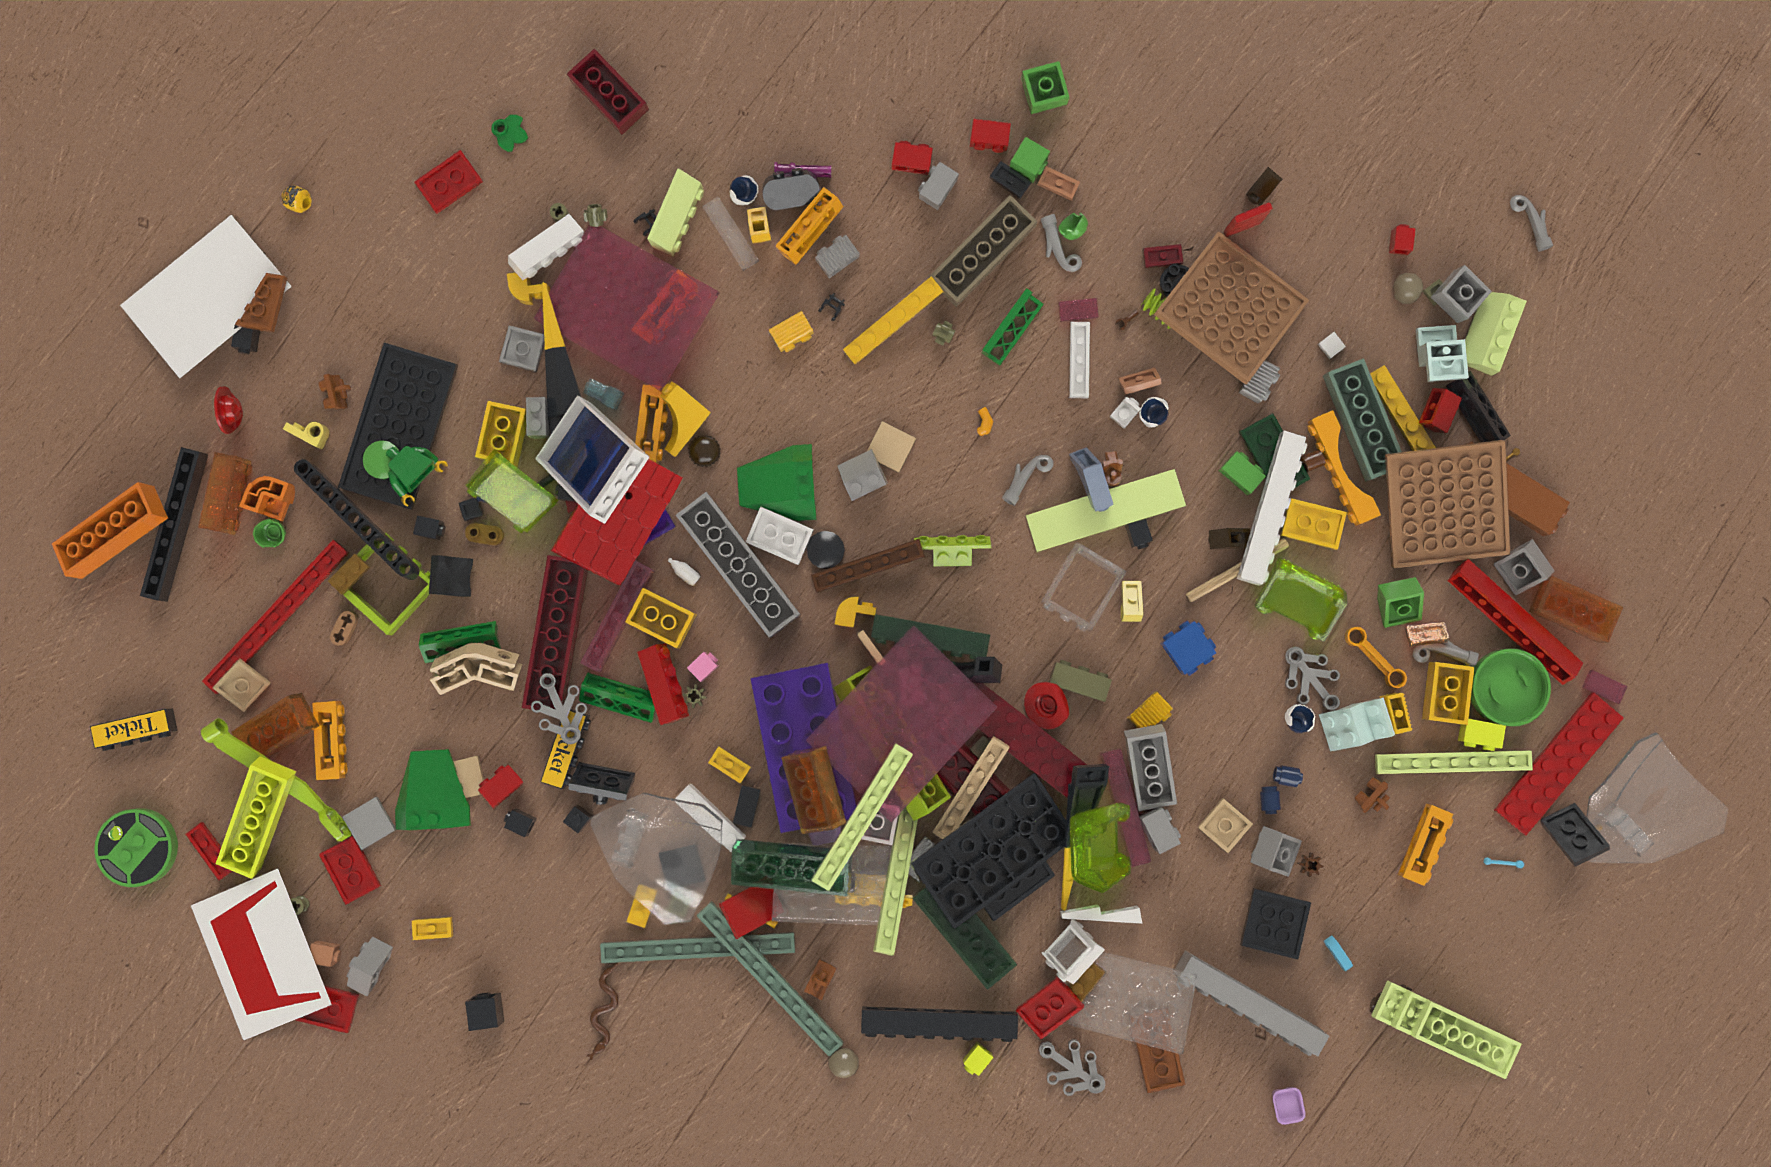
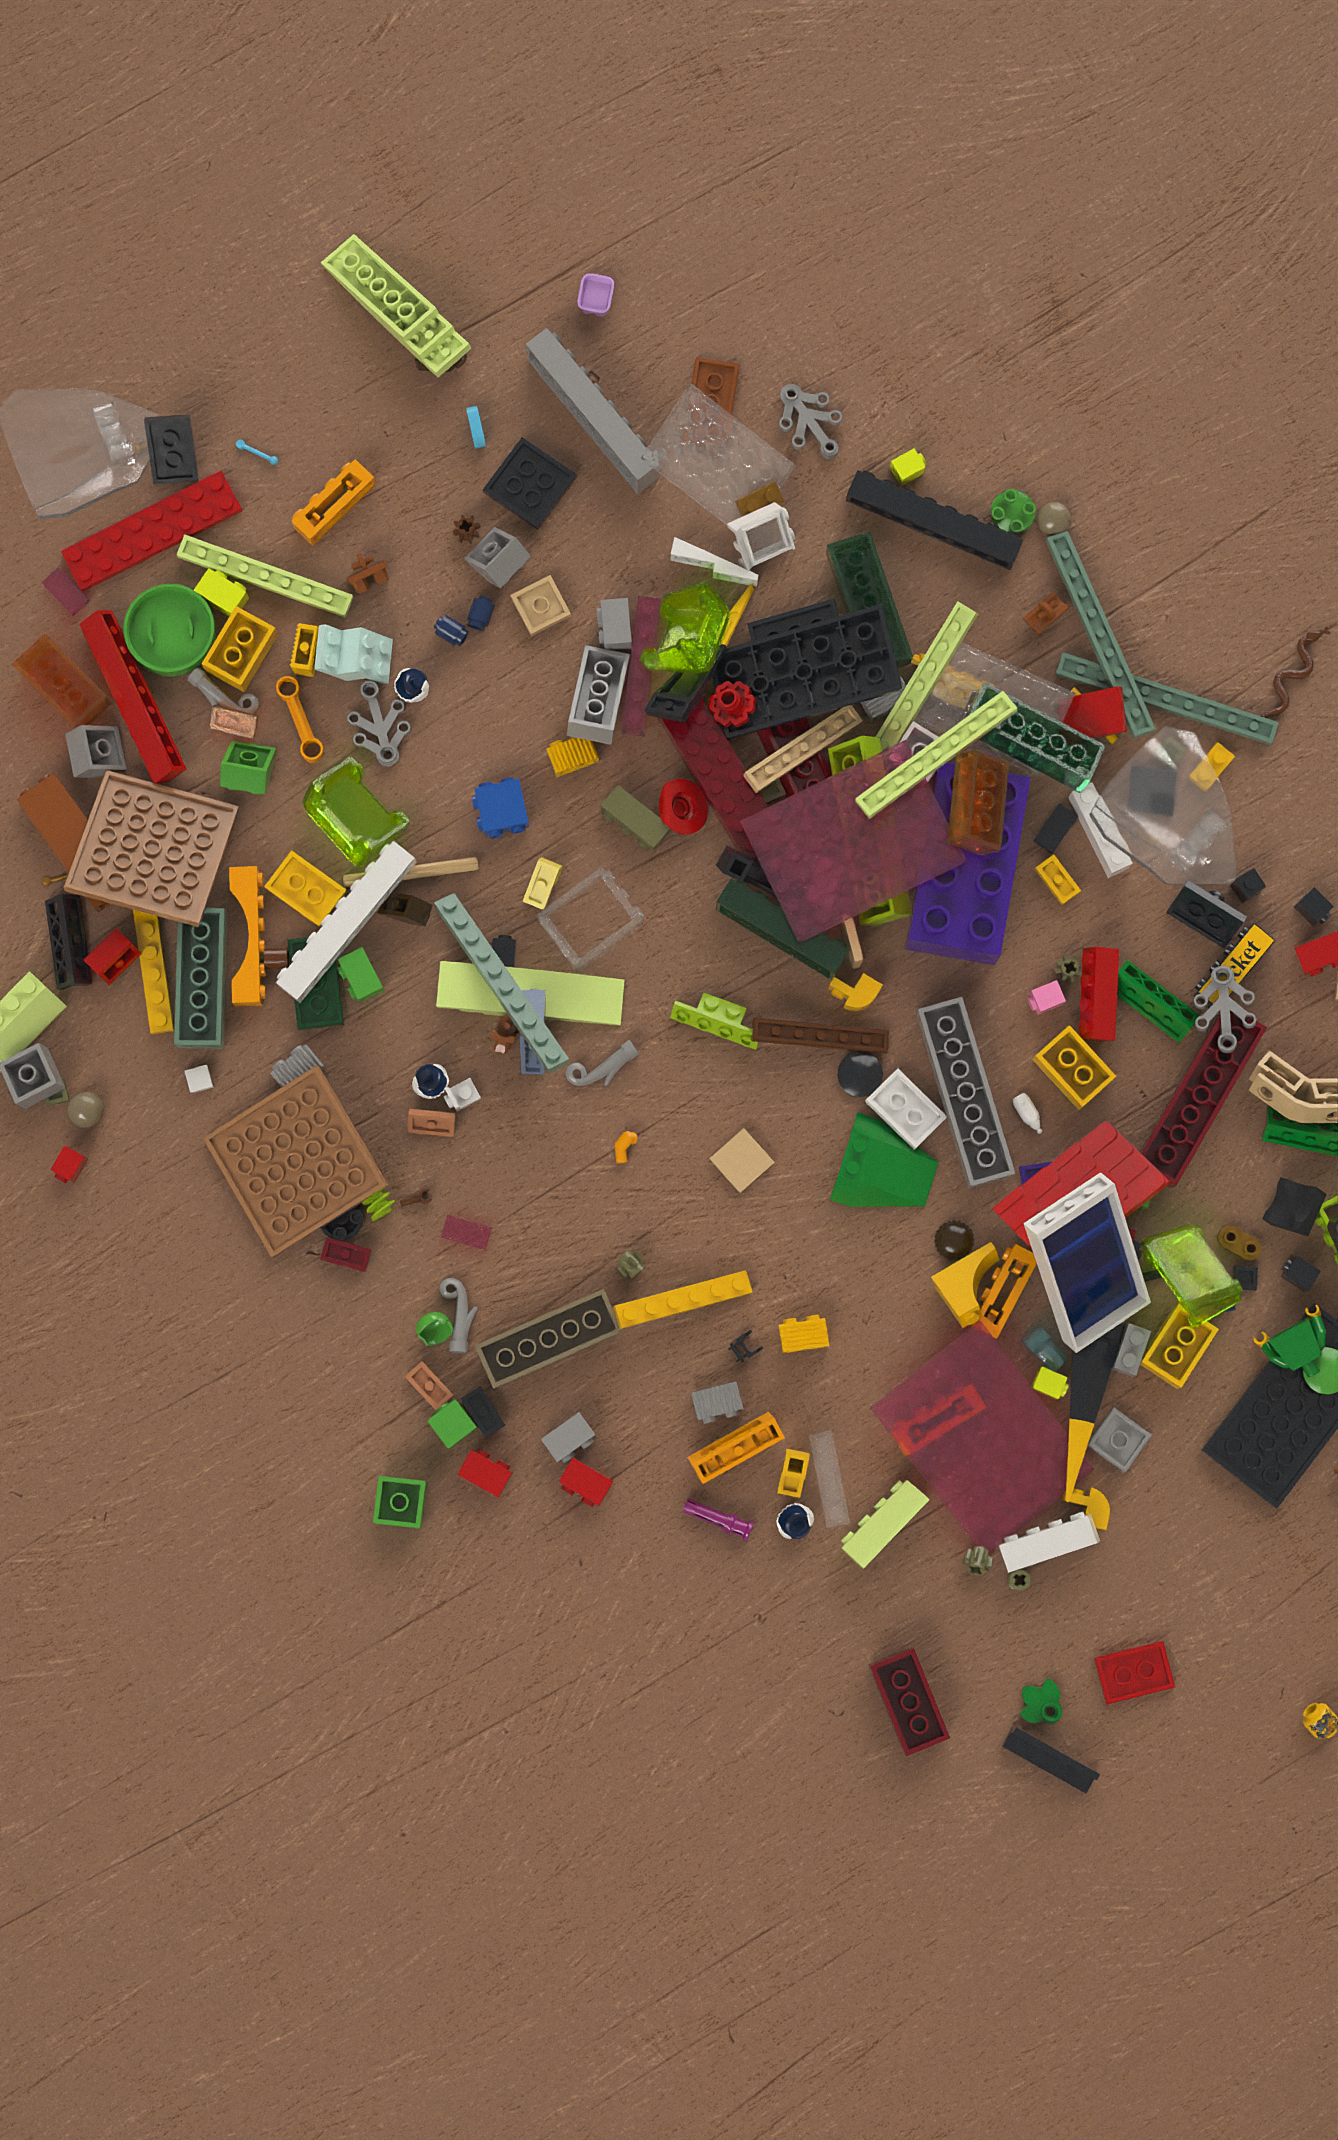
camera: 165 degrees left, 5 degrees down
(488, 94) = (1050, 1759): none -> black fence
(590, 368) = (1050, 1383): none -> neon yellow brick
(614, 620) = (1122, 1088): clear pink brick -> none
(645, 216) = (916, 1523): black piece -> none
(790, 189) = (741, 1499): brick -> none
(862, 475) = (786, 1138): light grey slope -> none
(878, 1055) = (1013, 511): none -> bright green dish
(1009, 319) = (553, 1248): green fence -> none
(1041, 801) = (732, 704): none -> red plant
(1049, 1007) = (809, 489): red tile -> none
(1079, 359) = (488, 1175): white tile -> none
(1131, 502) = (501, 983): none -> sand green plate
(1248, 219) = (236, 1251): red tile -> none
(1263, 187) = (200, 1285): dark brown slope -> none
(1442, 353) = (83, 1017): light aqua bracket -> none

